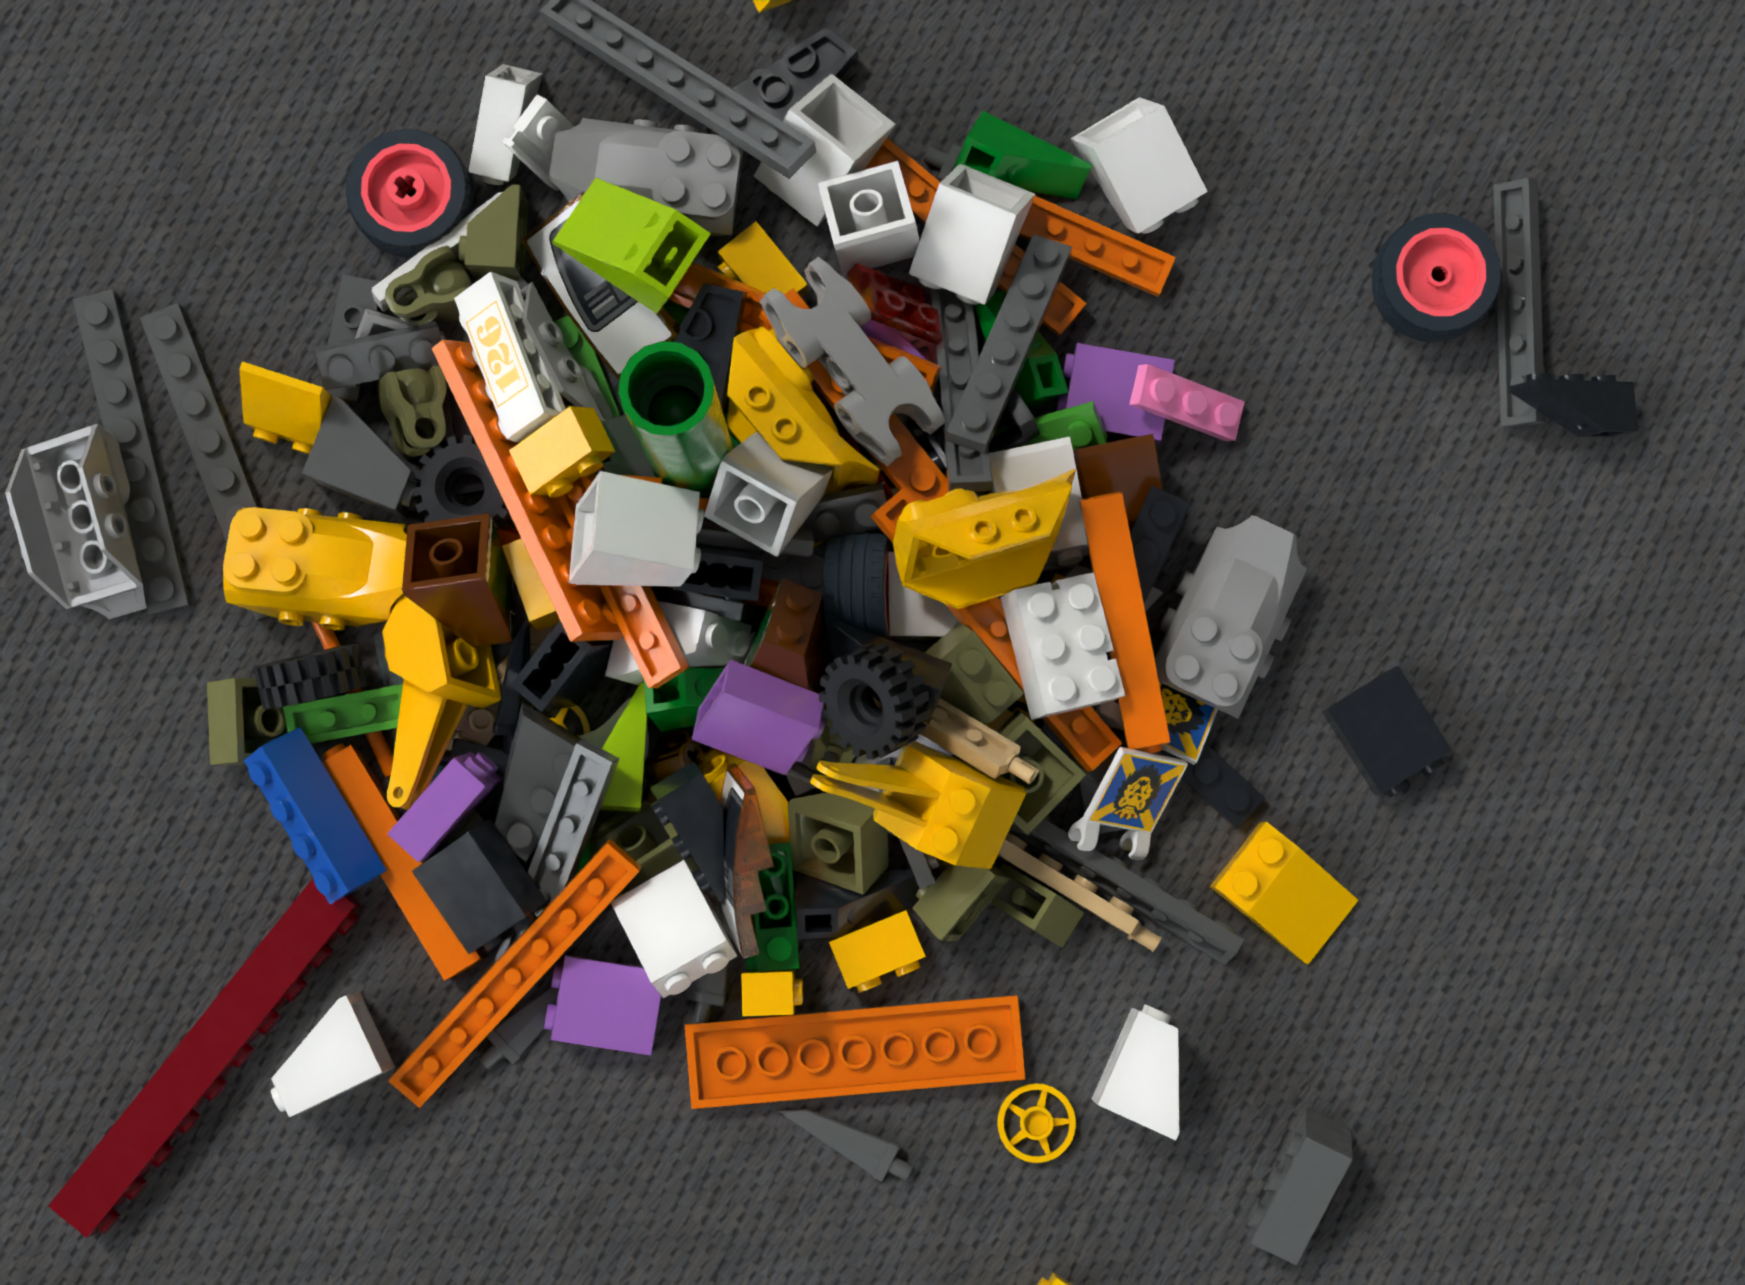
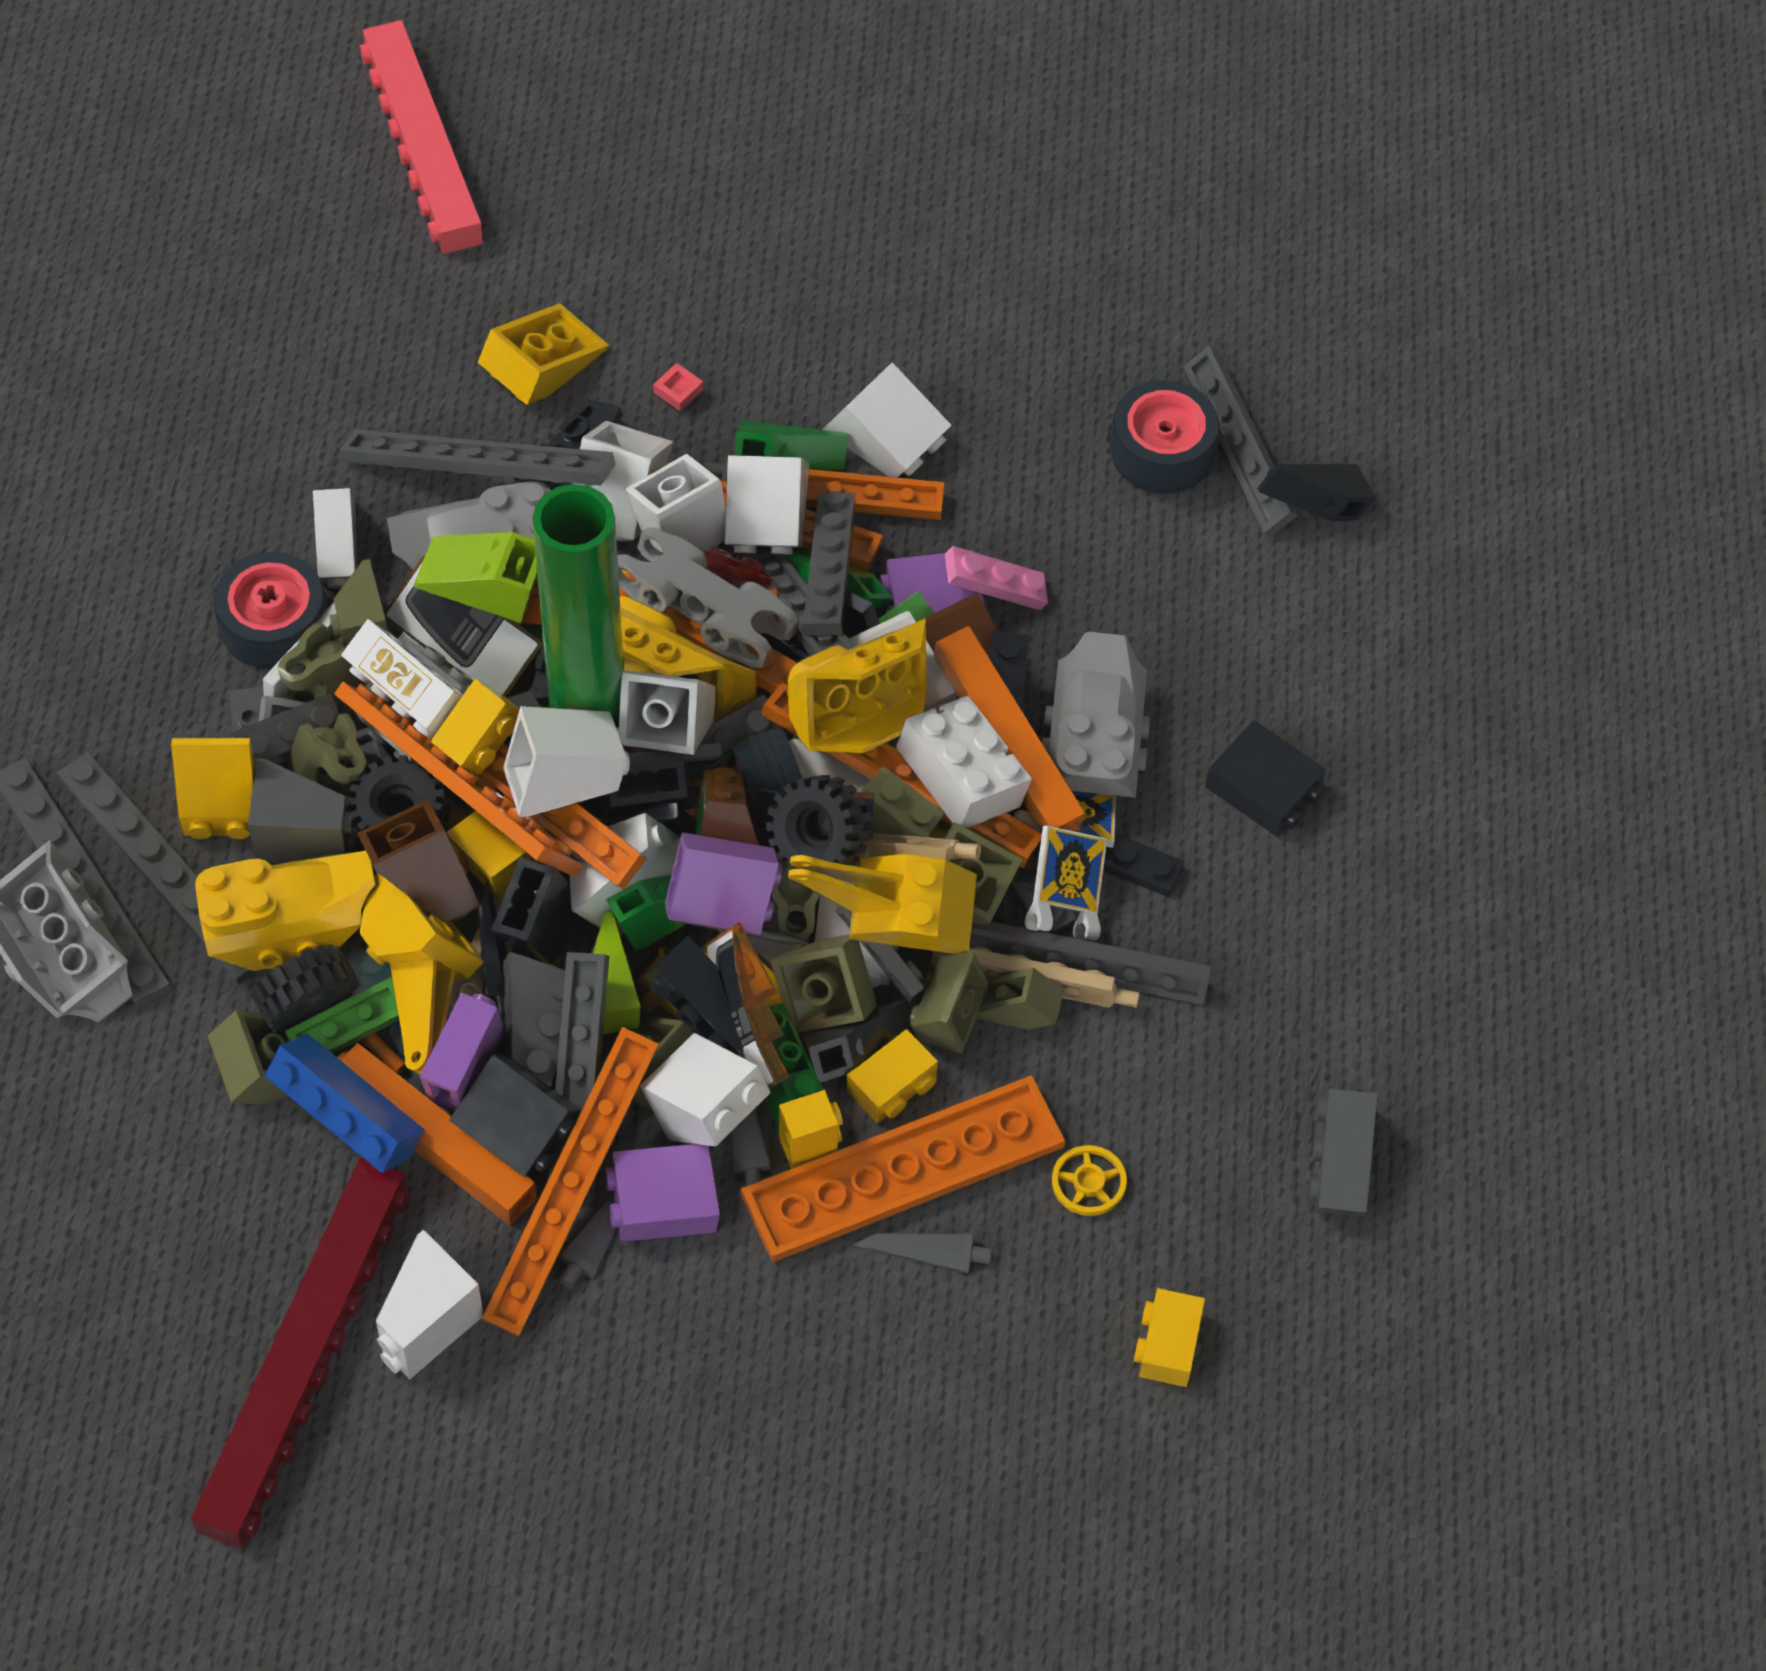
camera: 20 degrees left, 25 degrees down
(535, 137) = (371, 537): white plate -> none
(930, 39) = (678, 387): none -> coral plate
(1144, 1073) = (1170, 1099): white slope -> none
(1284, 892) = (1230, 927): yellow slope -> none

